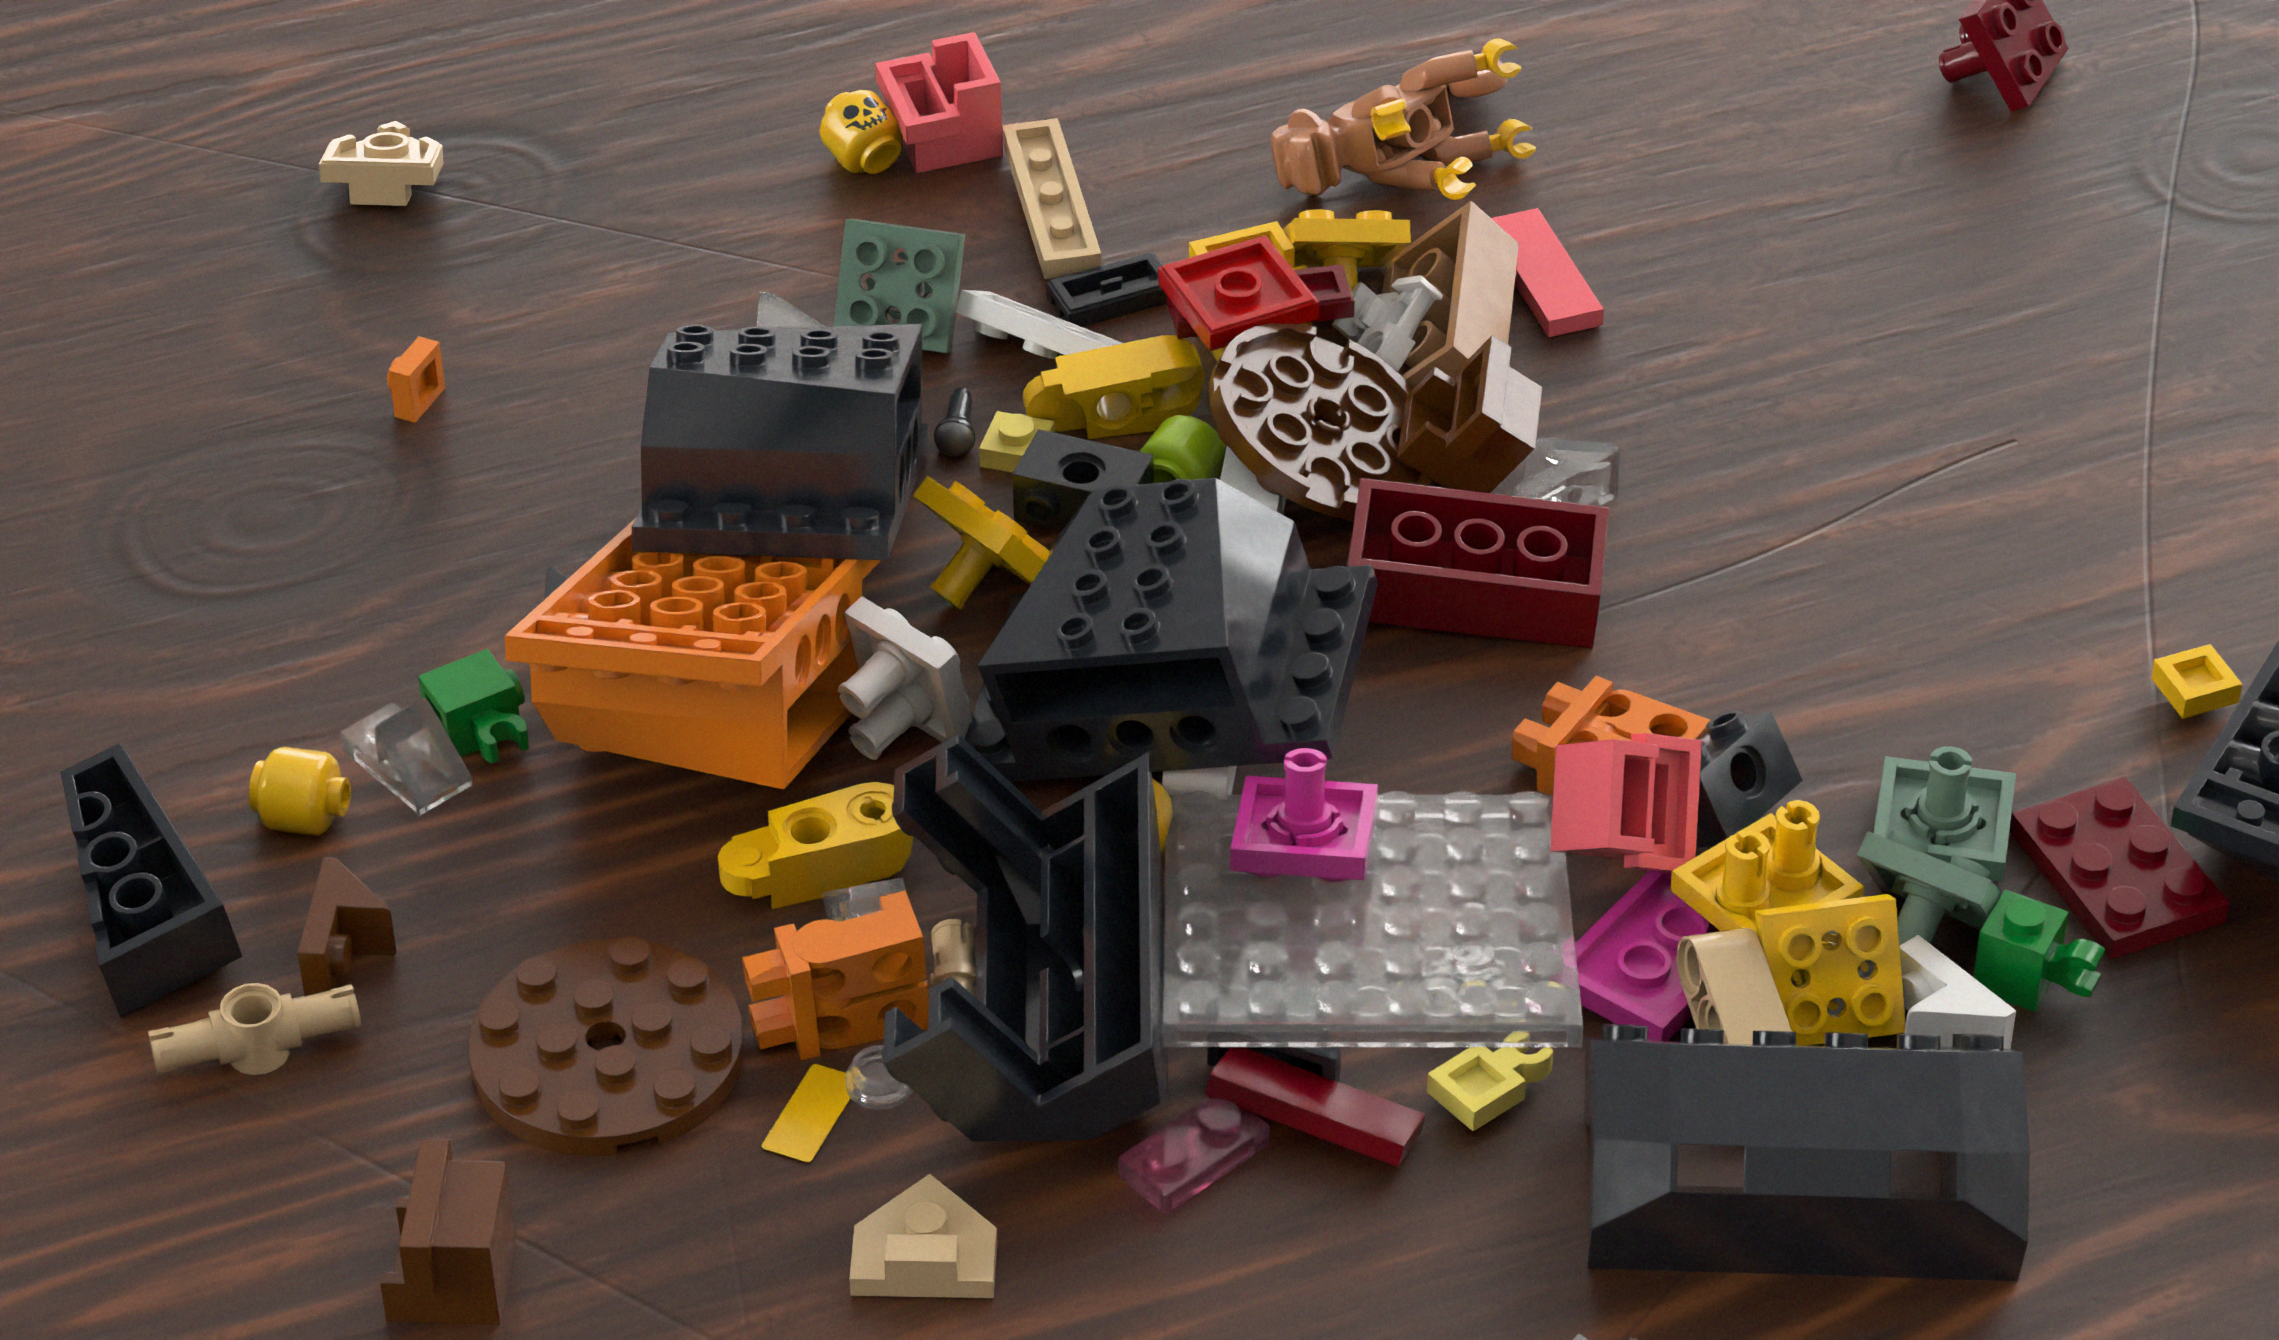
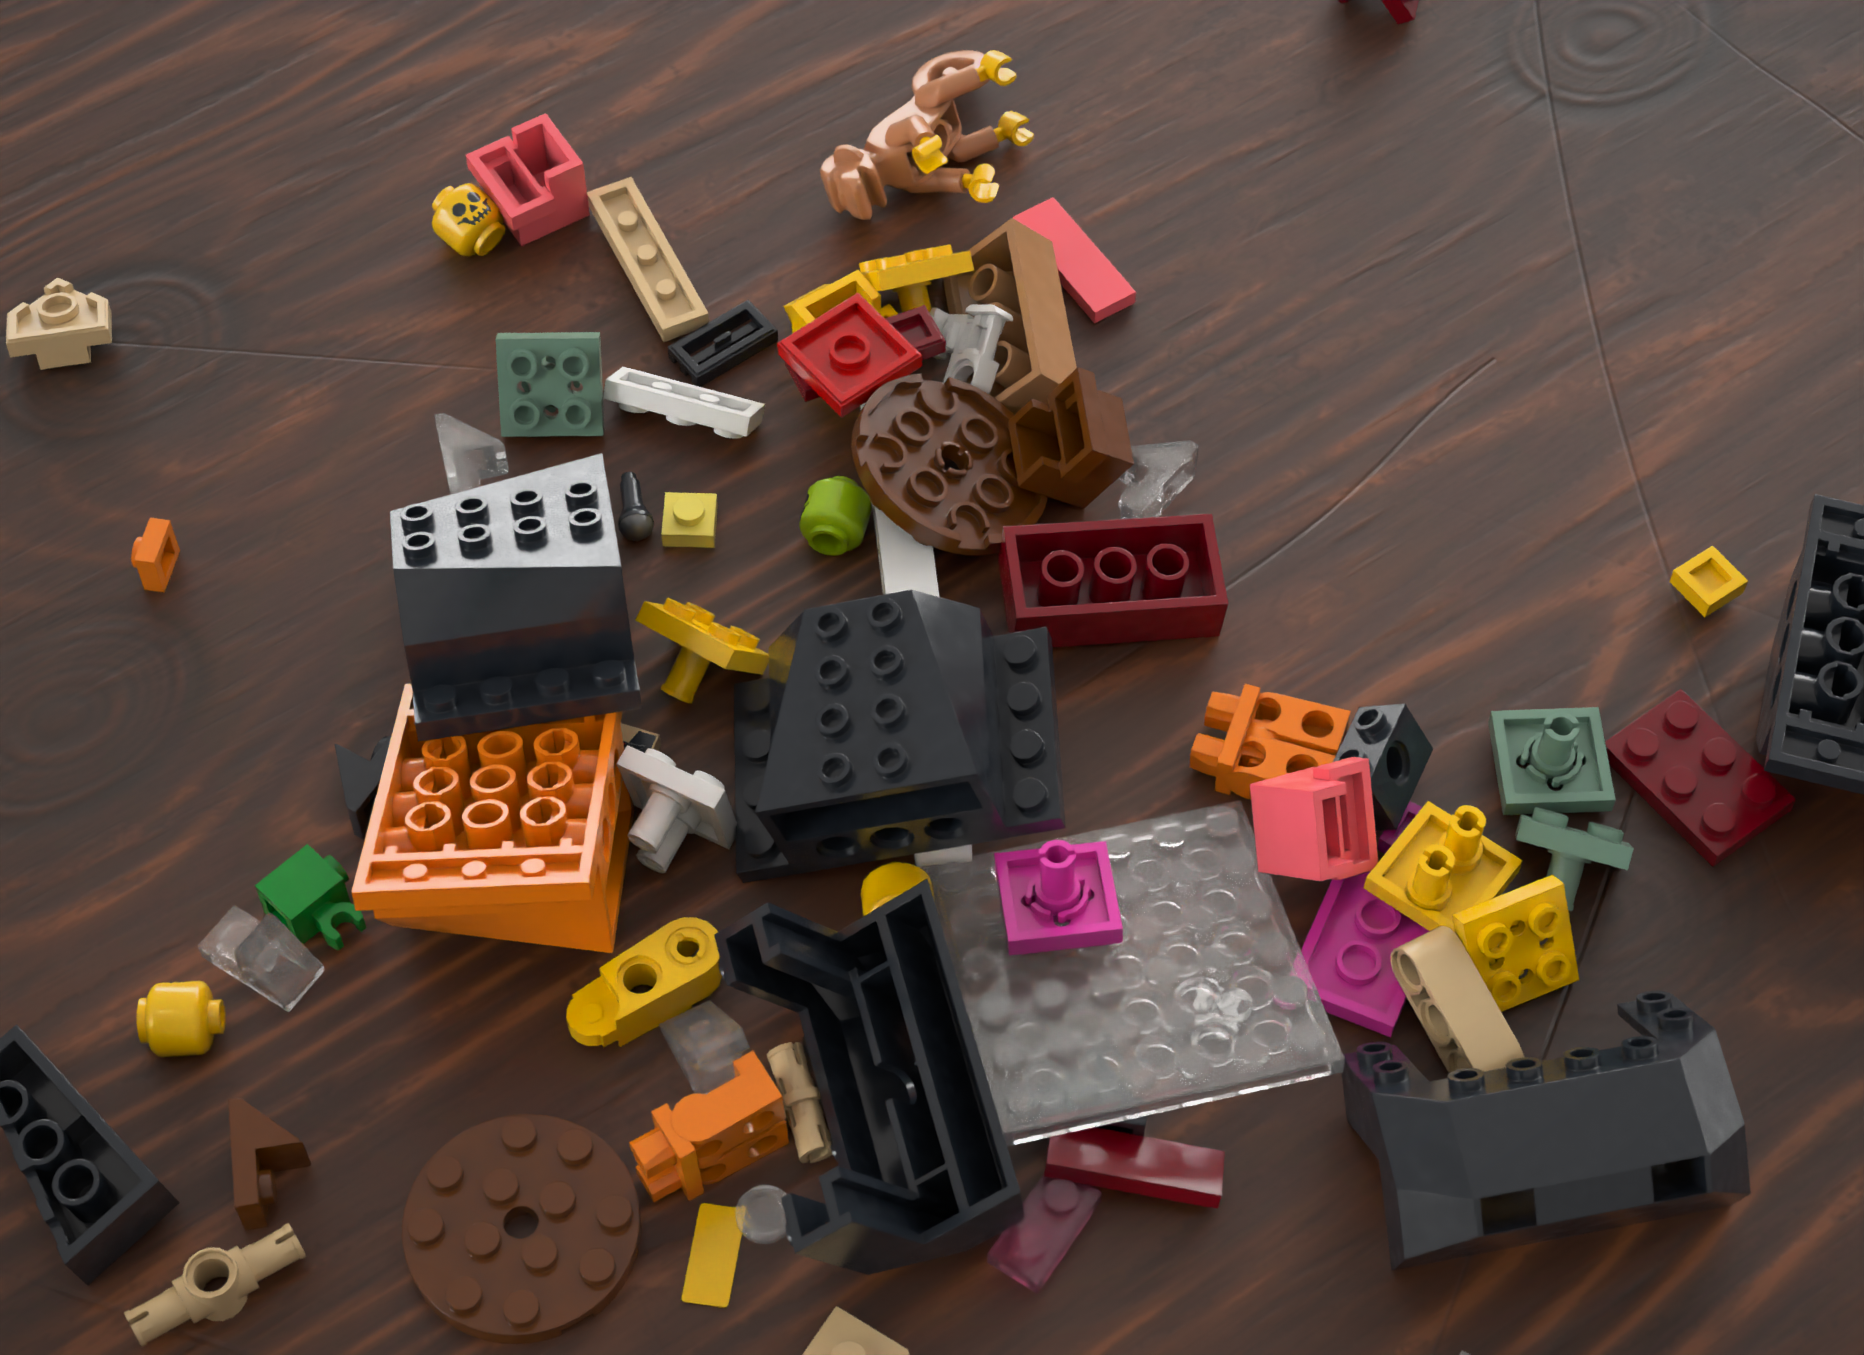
camera: 15 degrees left, 15 degrees up
(1064, 470) = (742, 544): black brick -> none
(1119, 387) = (763, 452): yellow piece -> none
(1486, 1083) = (1261, 1115): light yellow plate -> none
(1947, 998) = (1621, 958): white slope -> none
(2025, 953) = (1658, 887): green brick -> none

